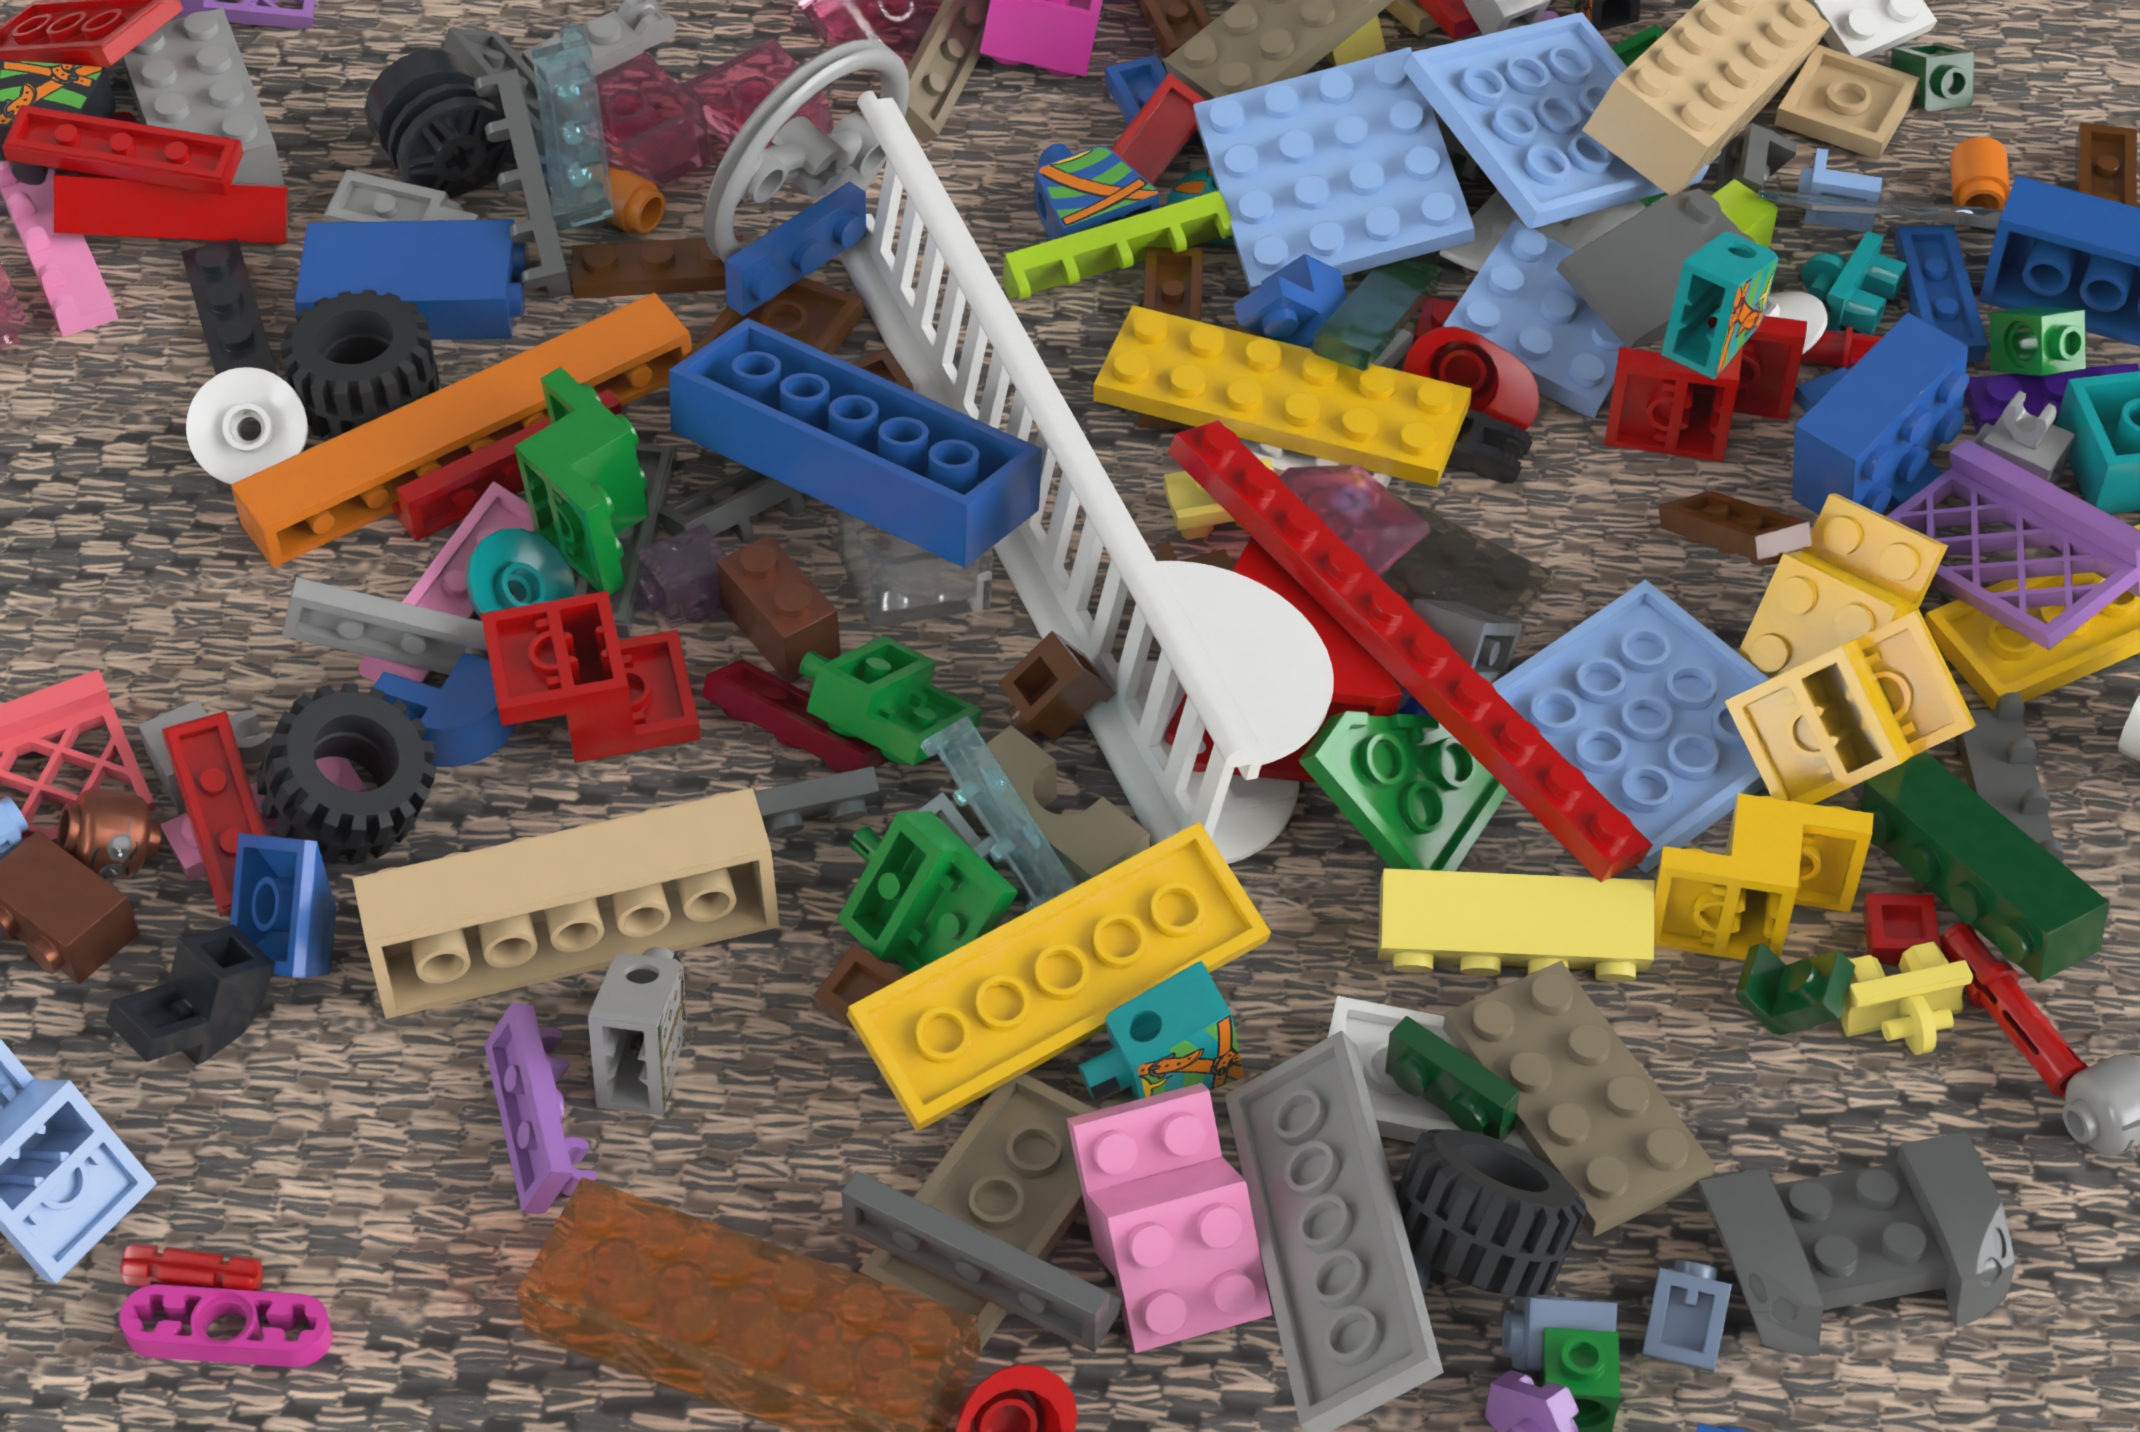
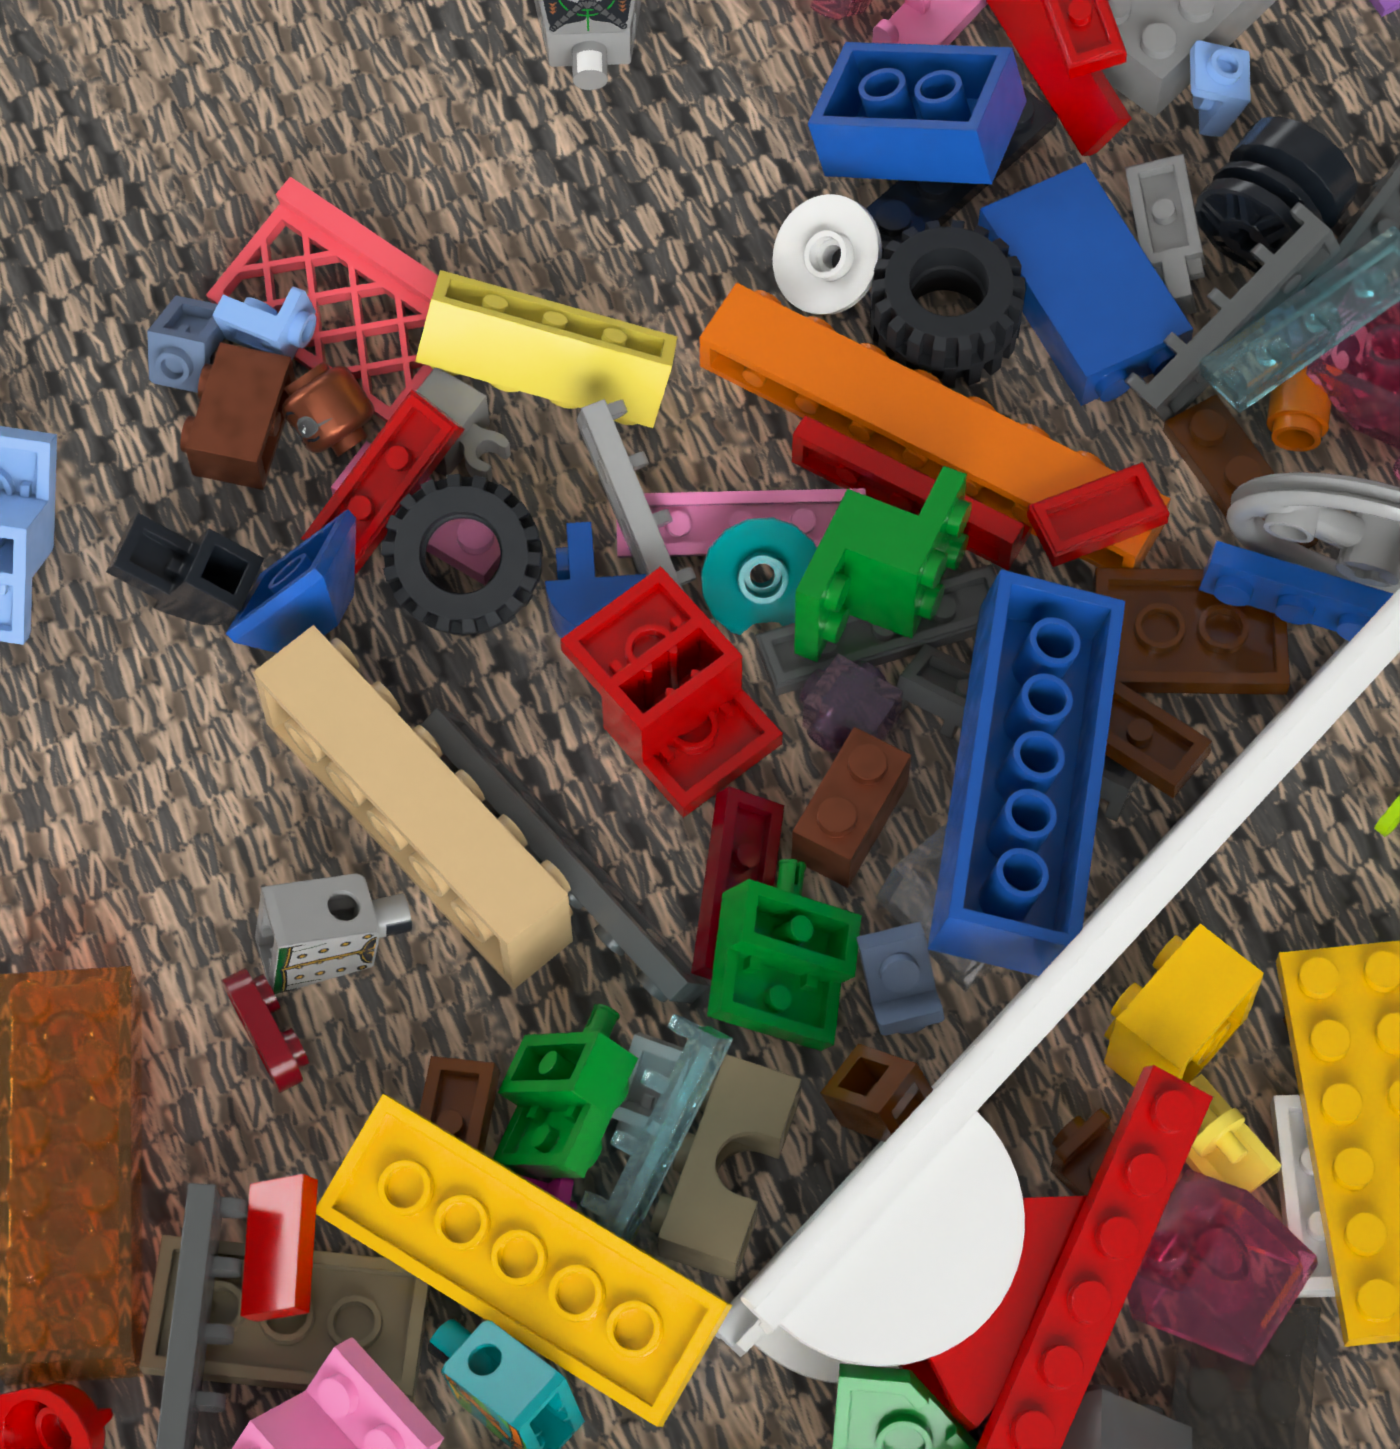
camera: 65 degrees right, 15 degrees up
(174, 299) = (918, 112): none -> blue brick
(183, 639) = (545, 348): none -> light yellow brick
(306, 125) = (1219, 85): none -> light blue bracket
(533, 1109) = (213, 891): medium lavender plate -> none
(637, 336) = (1097, 514): none -> red tile
(702, 1117) = (278, 1051): none -> dark red plate
(937, 1163) = (279, 1248): none -> red tile
(955, 638) = (900, 979): none -> sand blue bracket
(1127, 448) = (1183, 1010): none -> yellow brick

